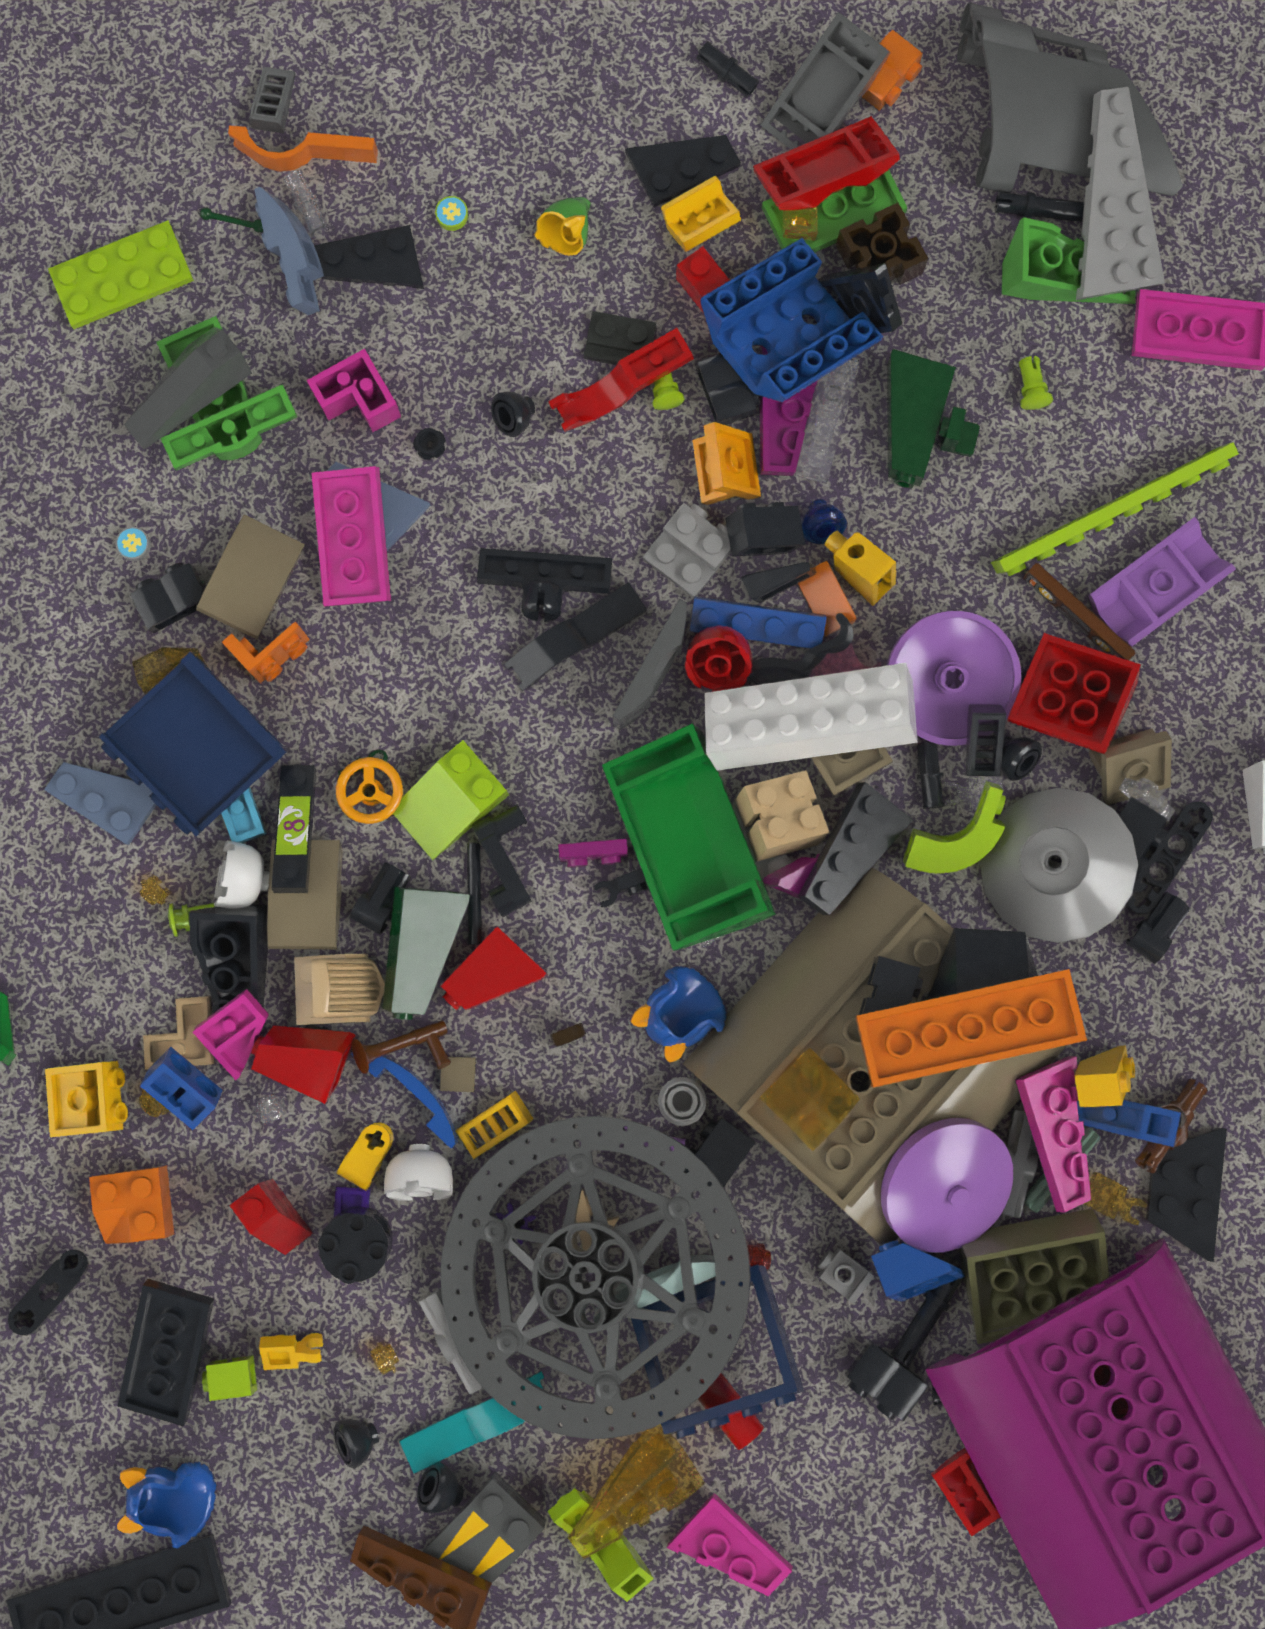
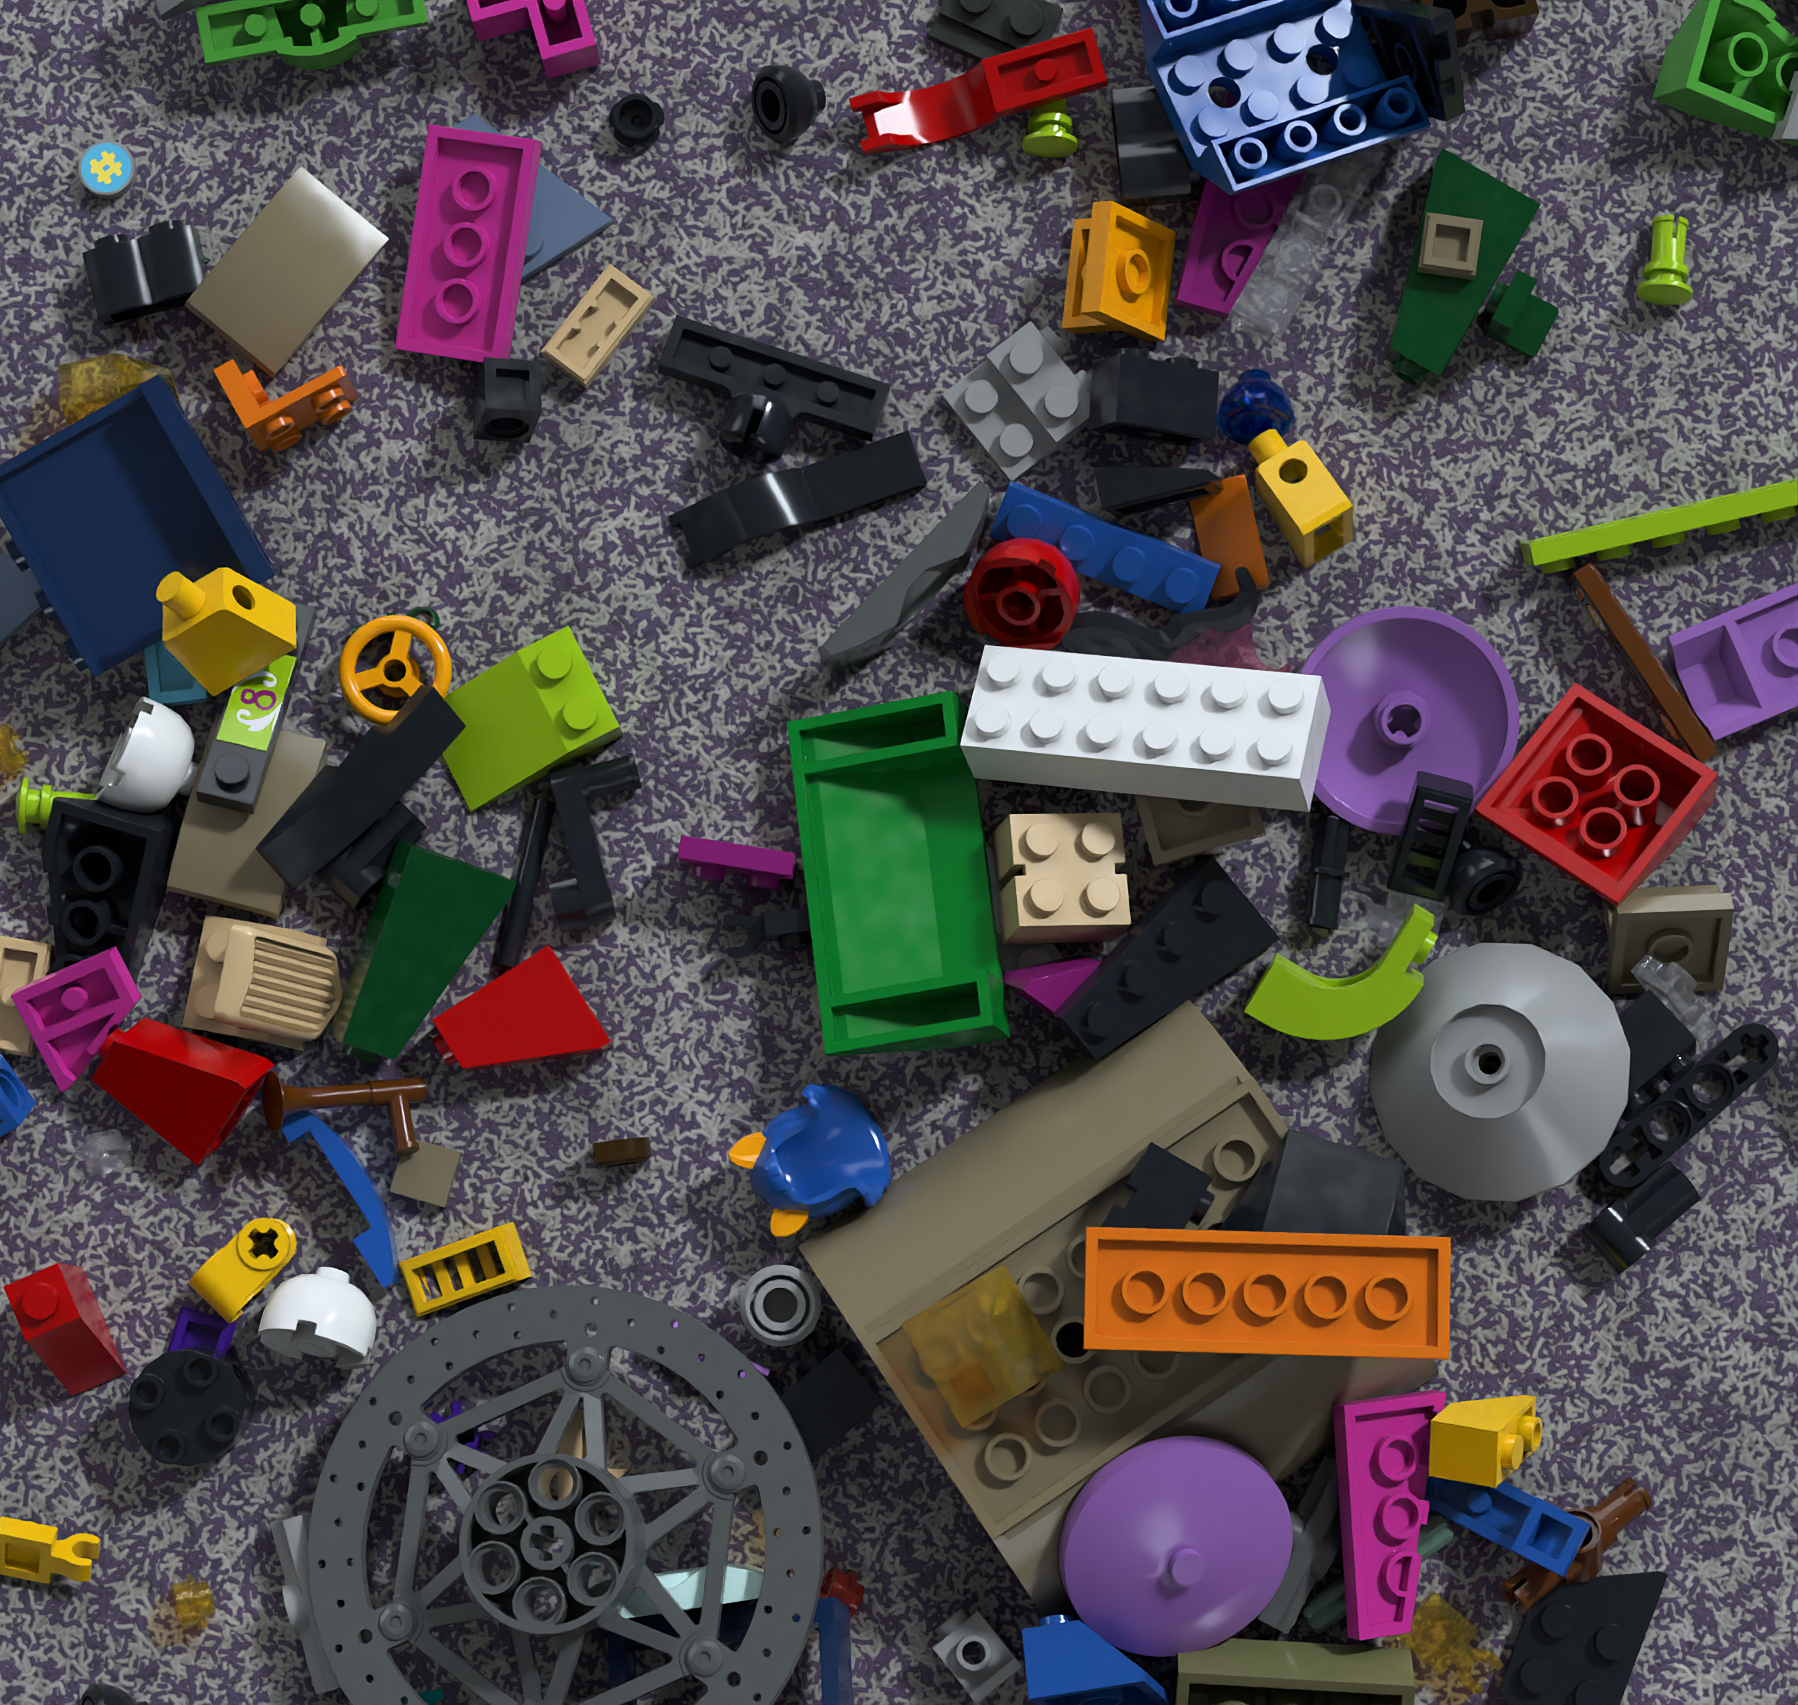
camera: 15 degrees right, 0 degrees up
(264, 788) = (224, 626): none -> yellow torso
(364, 866) = (361, 789): none -> black slope
(395, 619) = (507, 400): none -> black brick
(436, 565) = (598, 326): none -> tan plate
(911, 402) = (1449, 246): none -> dark tan tile

